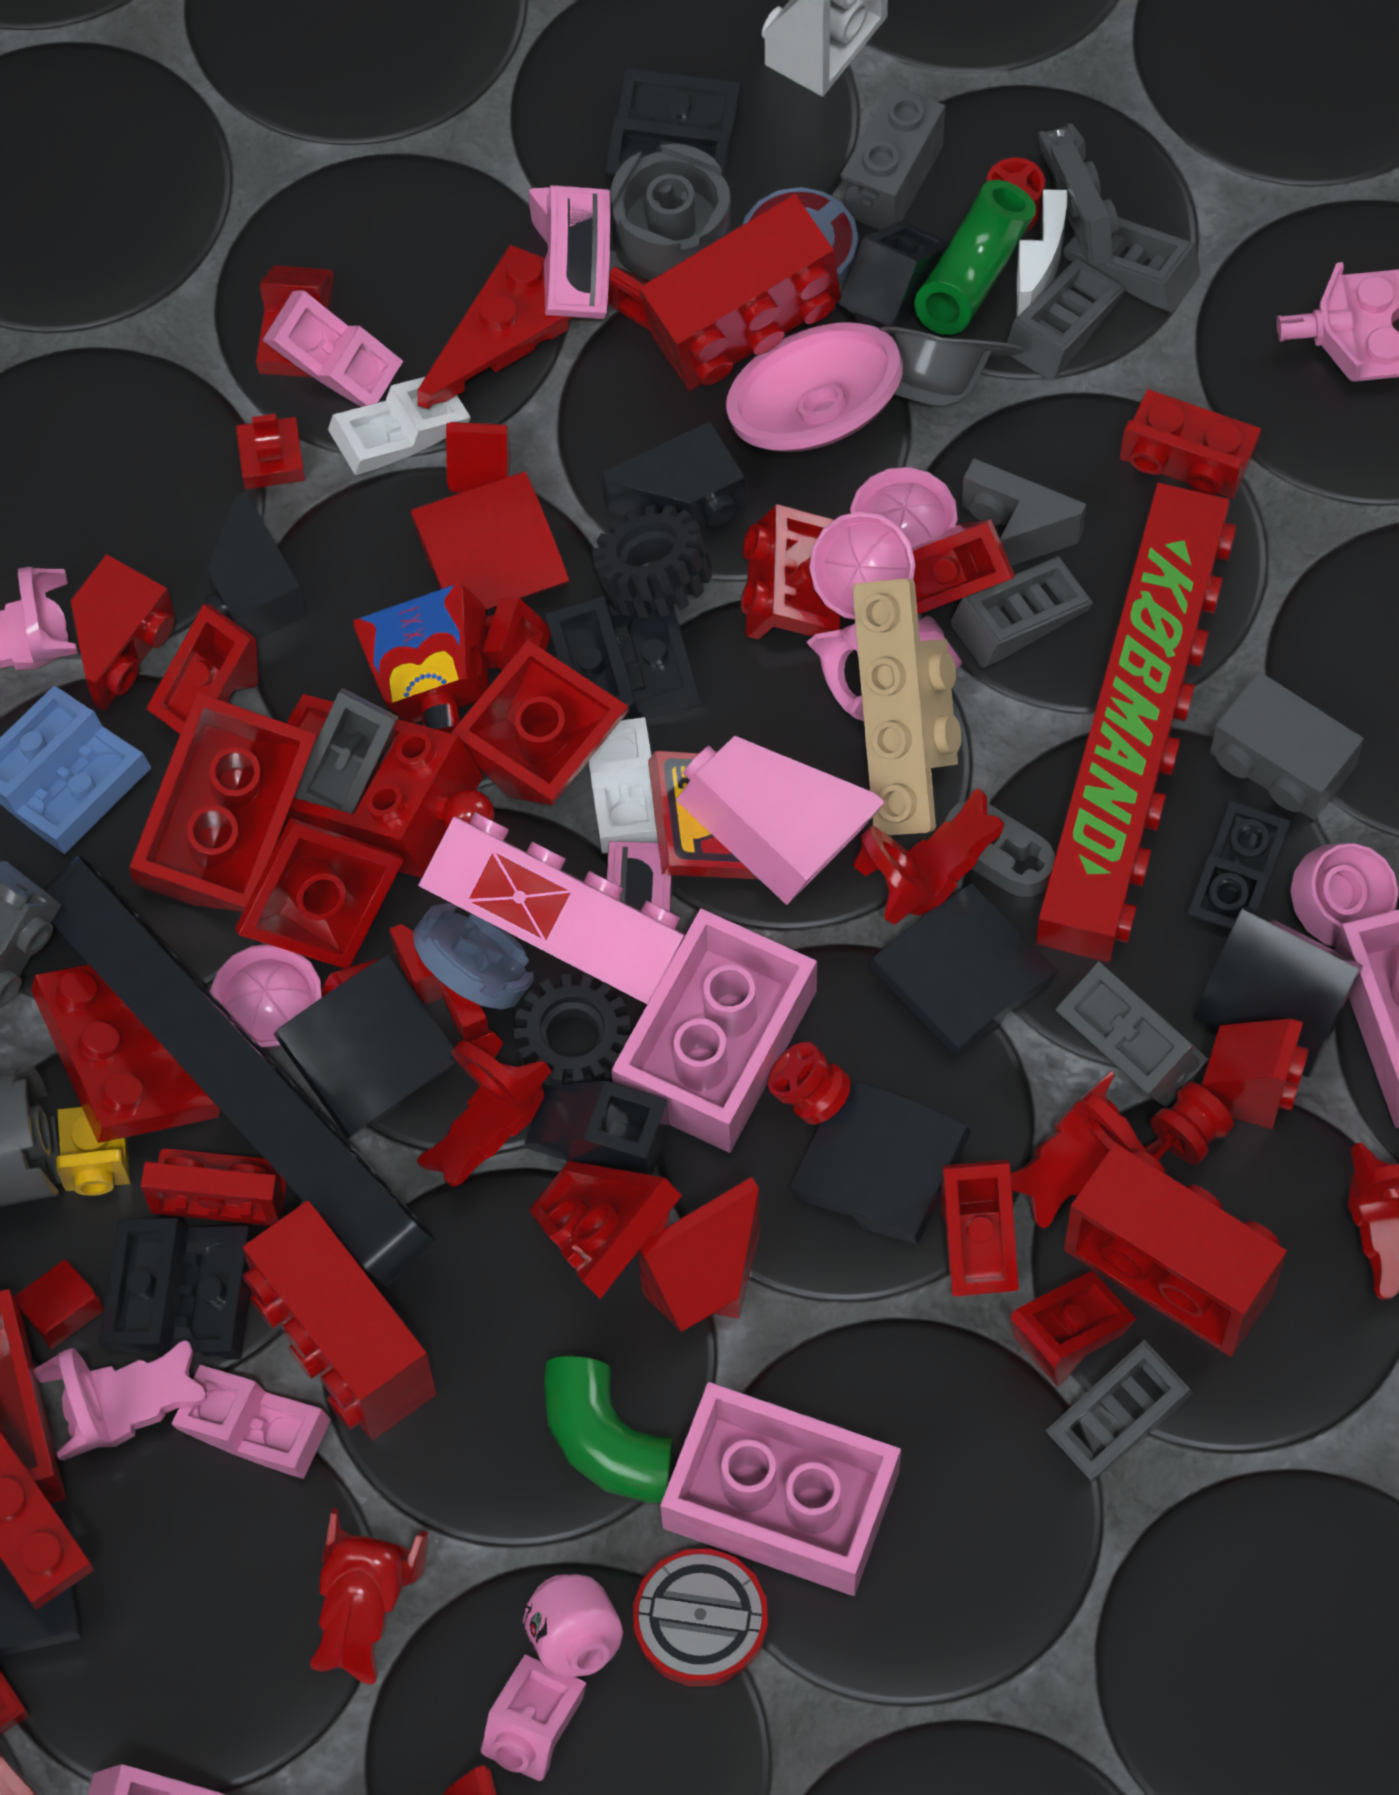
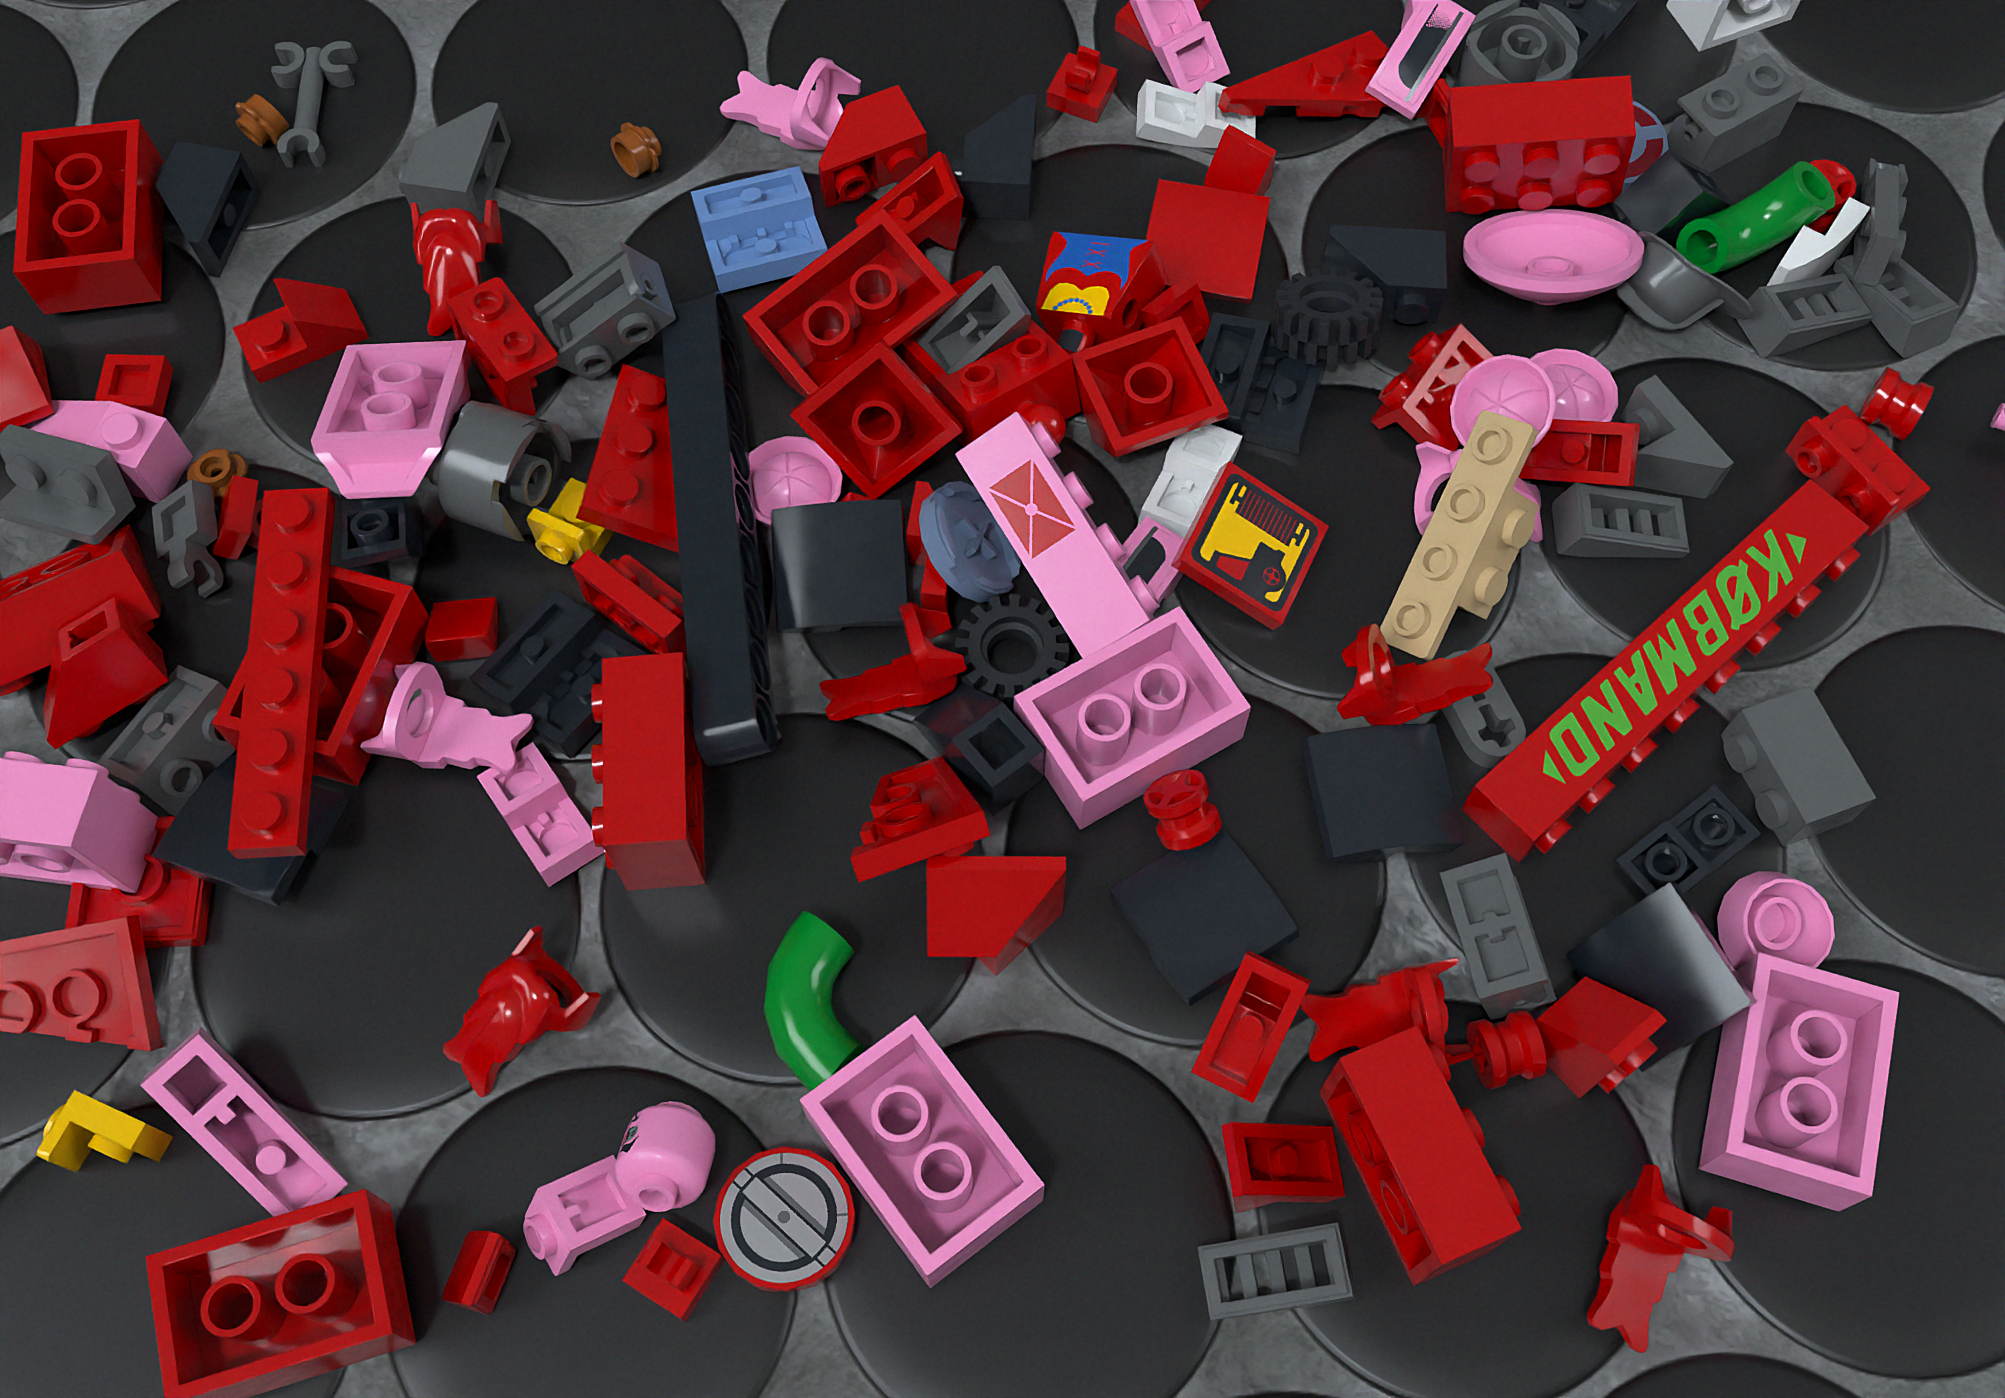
camera: 30 degrees right, 0 degrees up
(636, 1713) = (673, 1269): none -> red tile
(775, 812) = (1299, 566): bright pink slope -> none
(1189, 365) = (1895, 403): none -> red wheel

